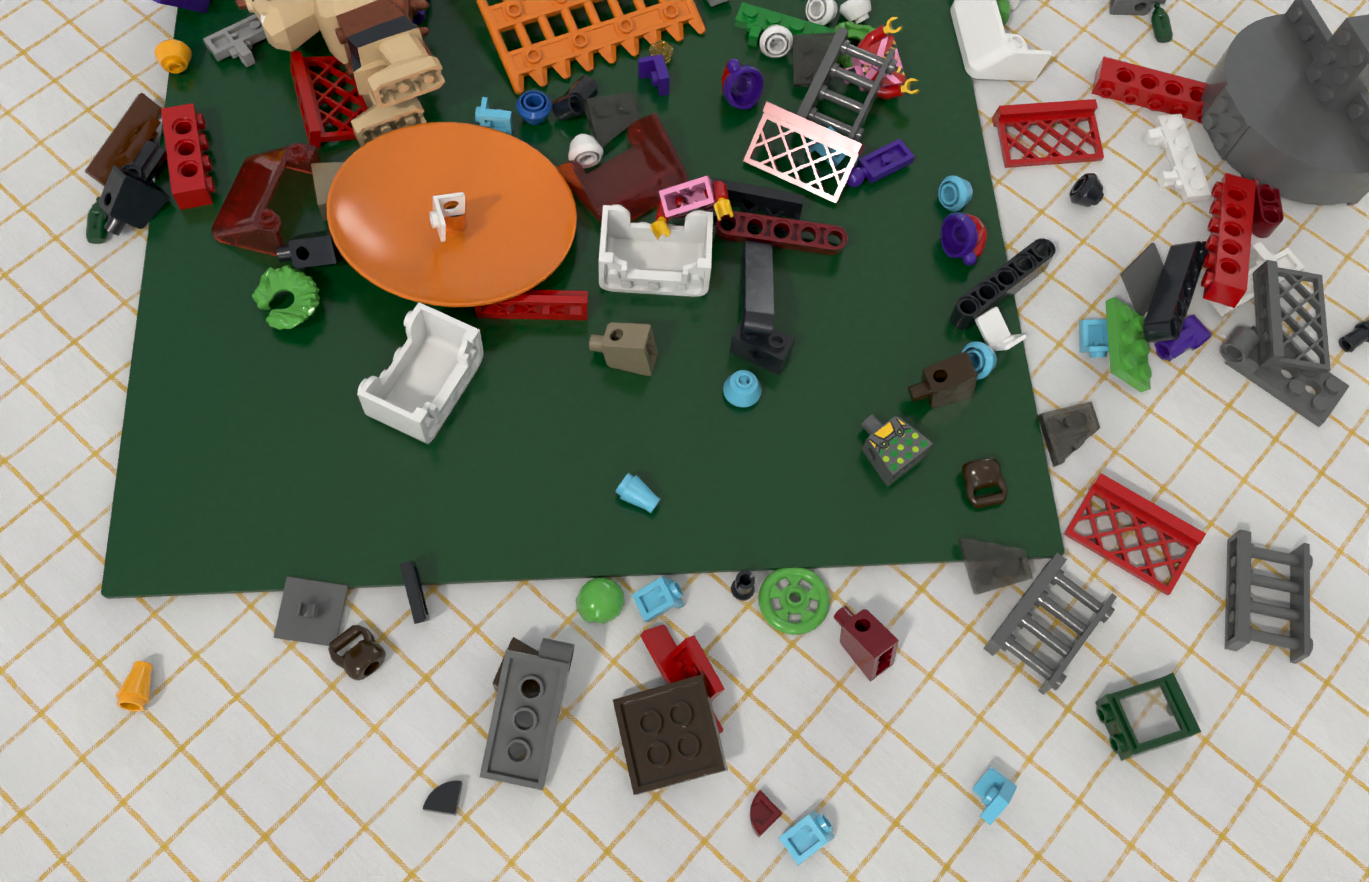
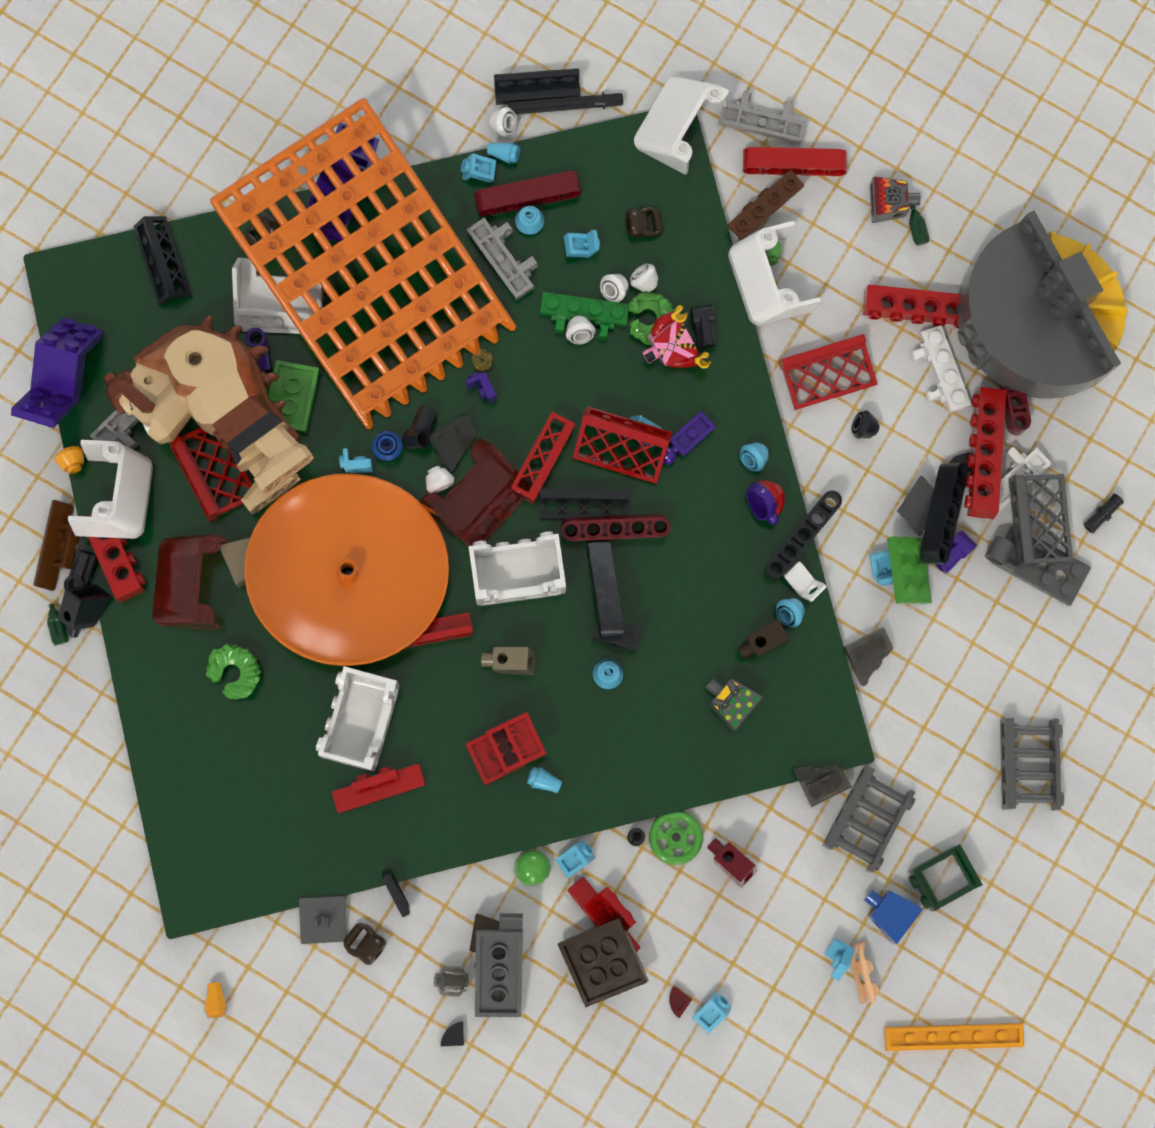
camera: 10 degrees left, 15 degrees up
(214, 102) = (127, 511): none -> white windscreen
(320, 250) = (242, 627): black torso -> none
(425, 459) = (378, 787): none -> red bracket
(439, 212) = (338, 574): white bracket -> none
(448, 38) = (297, 388): none -> bright green plate
(459, 722) = (451, 981): none -> clear smoke head
(598, 442) = (506, 748): none -> red bracket
(687, 197) = (537, 521): torso -> none
(722, 149) = (550, 461): none -> red fence
(741, 84) = (558, 387): dark purple piece -> none
(808, 55) = (614, 342): clear smoke wing -> none
(830, 68) = (632, 360): dark grey fence -> none
(916, 57) = (704, 319): none -> black piece
(984, 474) = (805, 710): dark brown piece -> none
(1026, 818) = (863, 967): none -> light nougat piece
(1071, 751) = (892, 914): none -> blue torso
(1145, 512) = (933, 715): red fence -> none

